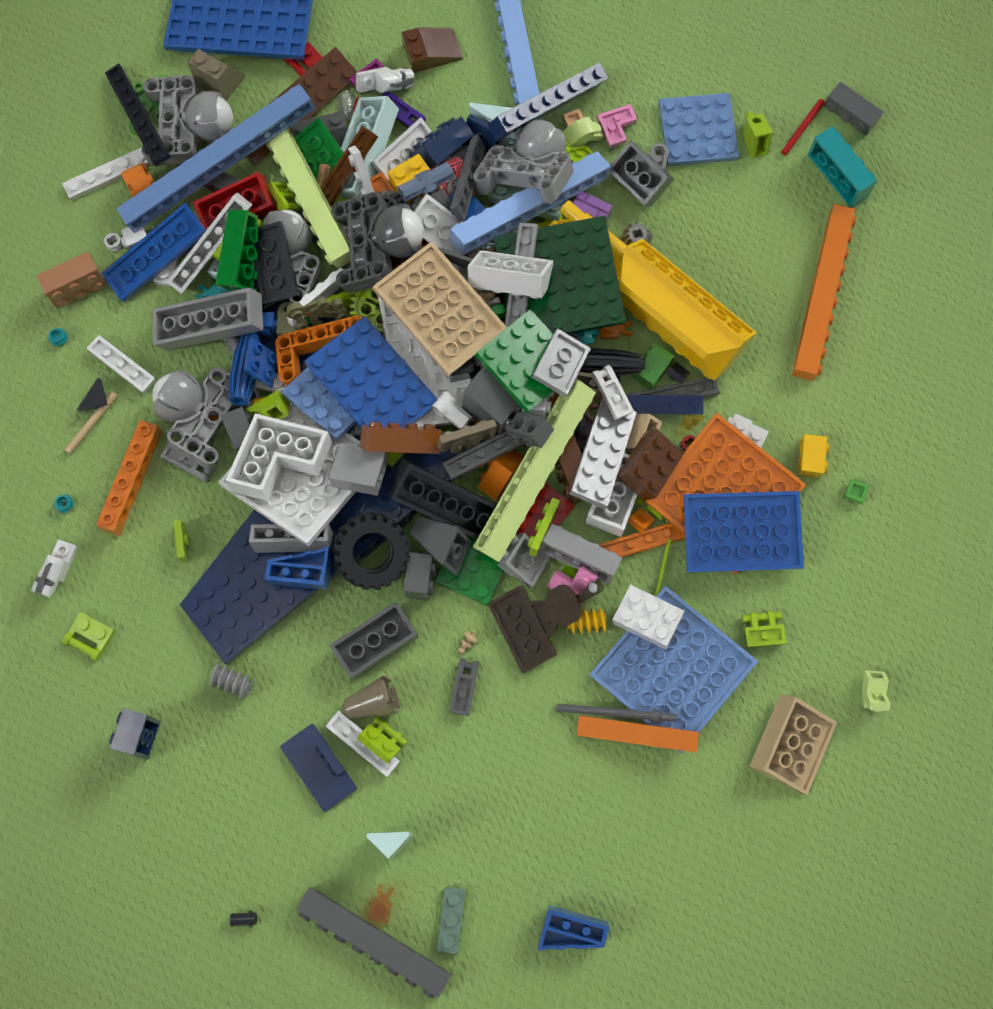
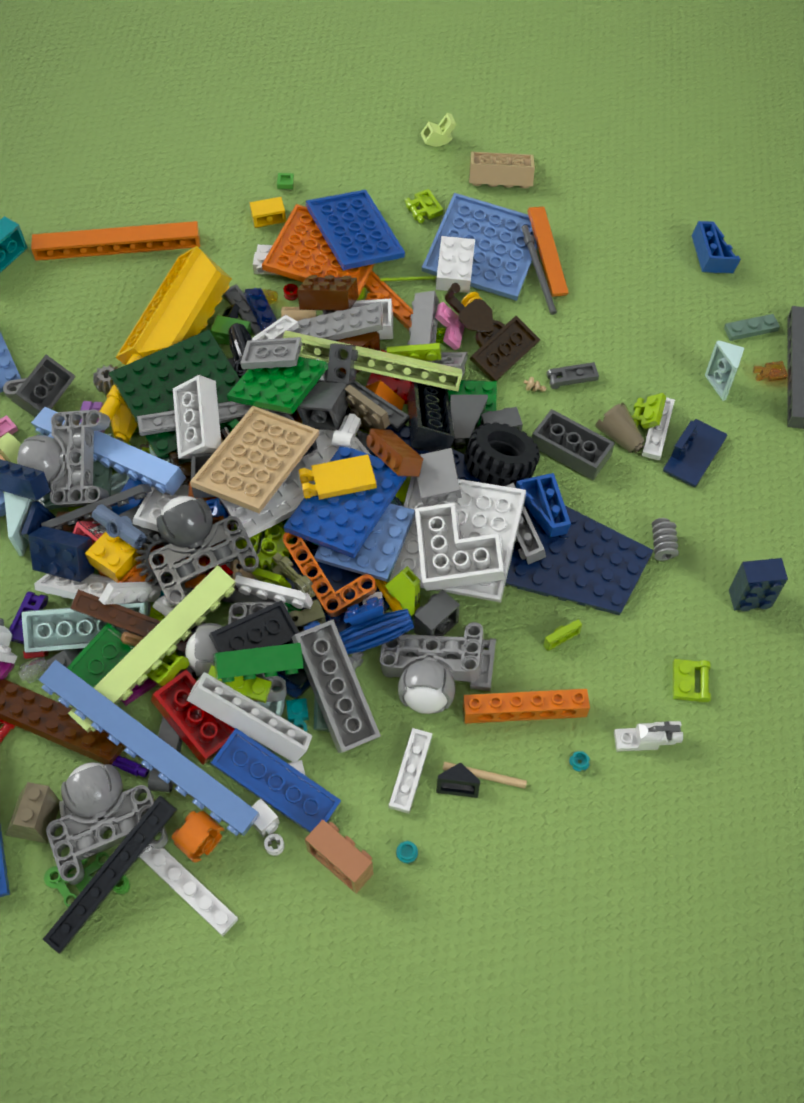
camera: 110 degrees left, 15 degrees down
(392, 379) = (338, 477): none -> yellow tile

